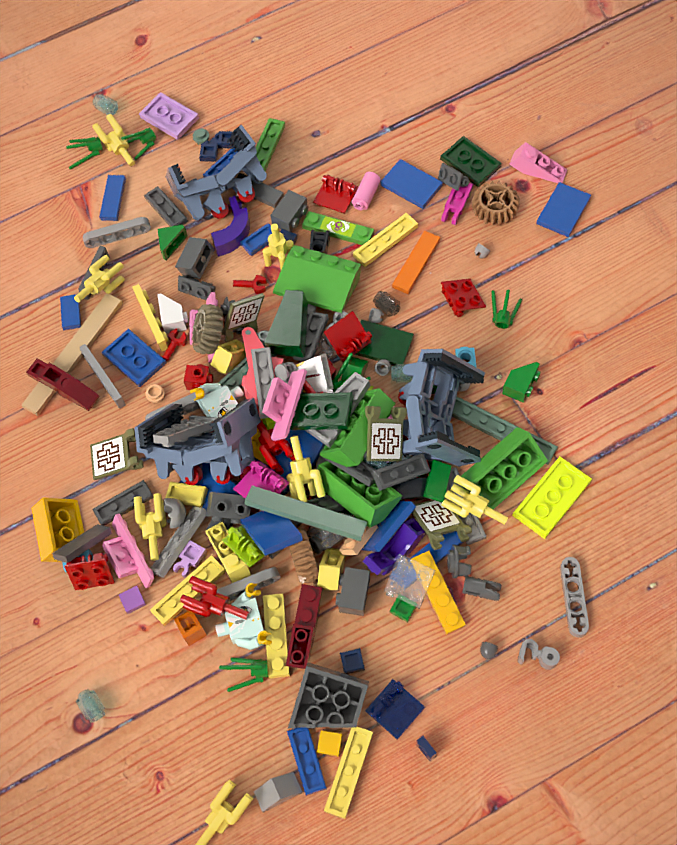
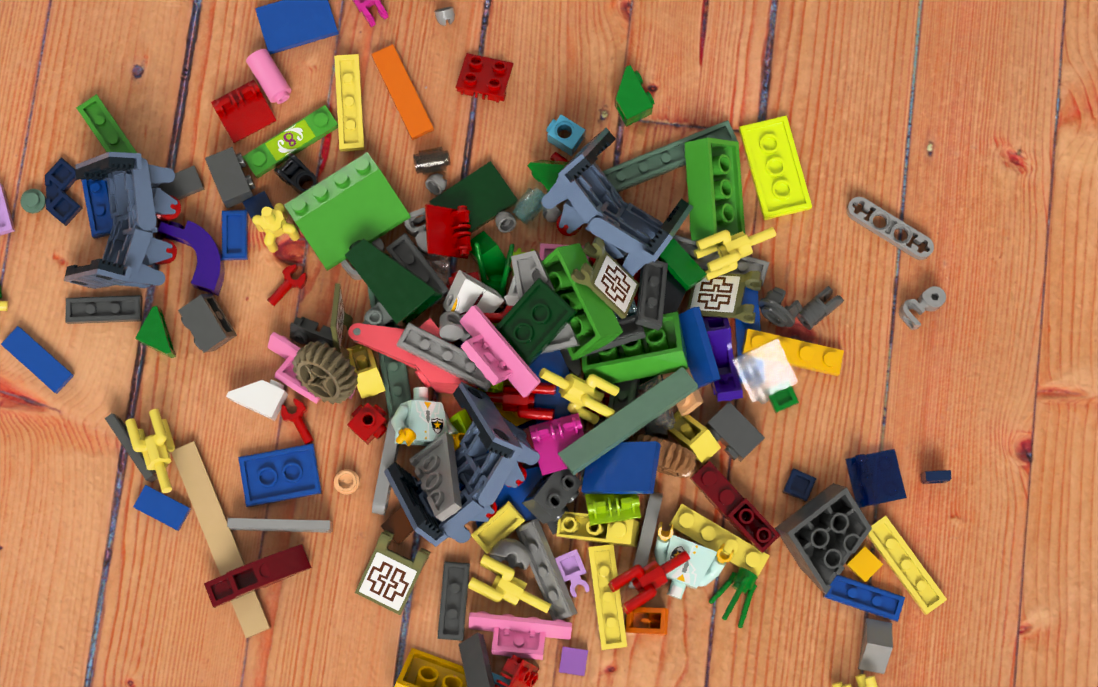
camera: 60 degrees left, 15 degrees up
(135, 227) = (94, 387): light grey beam -> none
(148, 311) = (235, 420): light yellow plate -> none
(194, 287) = (253, 343): dark grey hinge -> none
(488, 650) = (884, 348): dark grey hinge -> none
(503, 318) = (544, 56): green plant -> none

